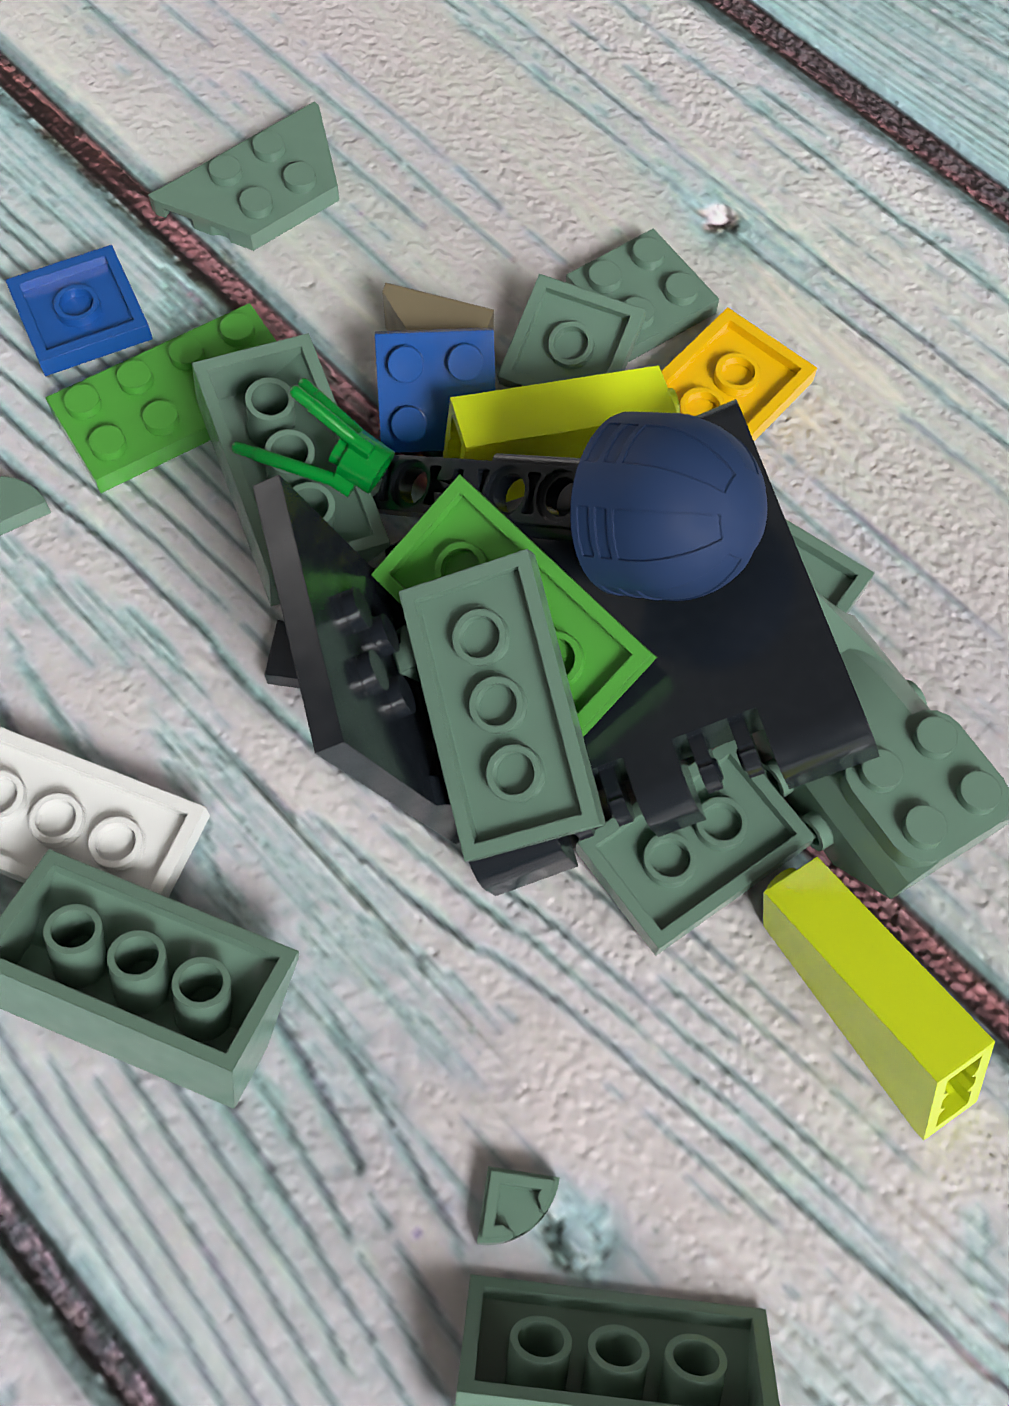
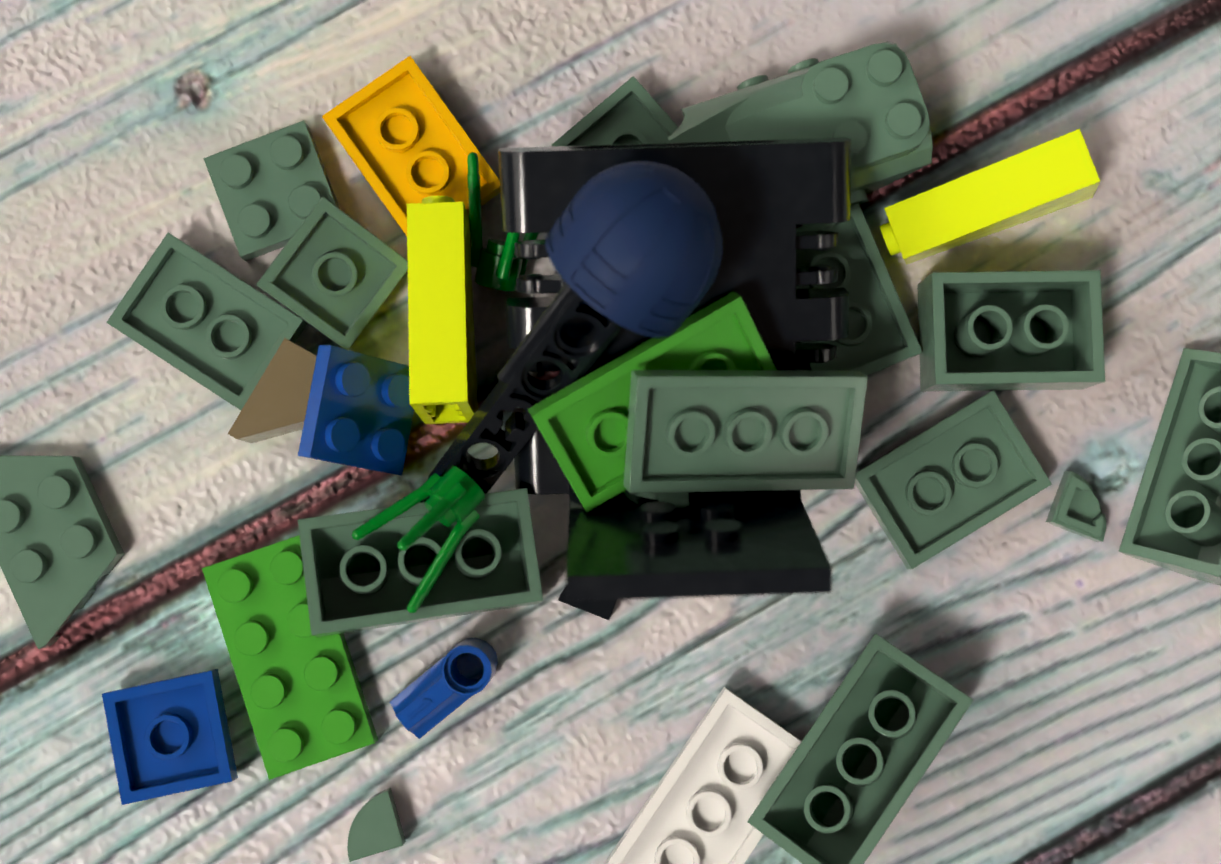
camera: 75 degrees left, 20 degrees up
(166, 532) = (443, 688): none -> blue piece
(497, 252) = (204, 320): none -> sand green plate
(511, 1024) = (951, 480): none -> sand green plate
(715, 1045) = (1011, 330): none -> sand green brick

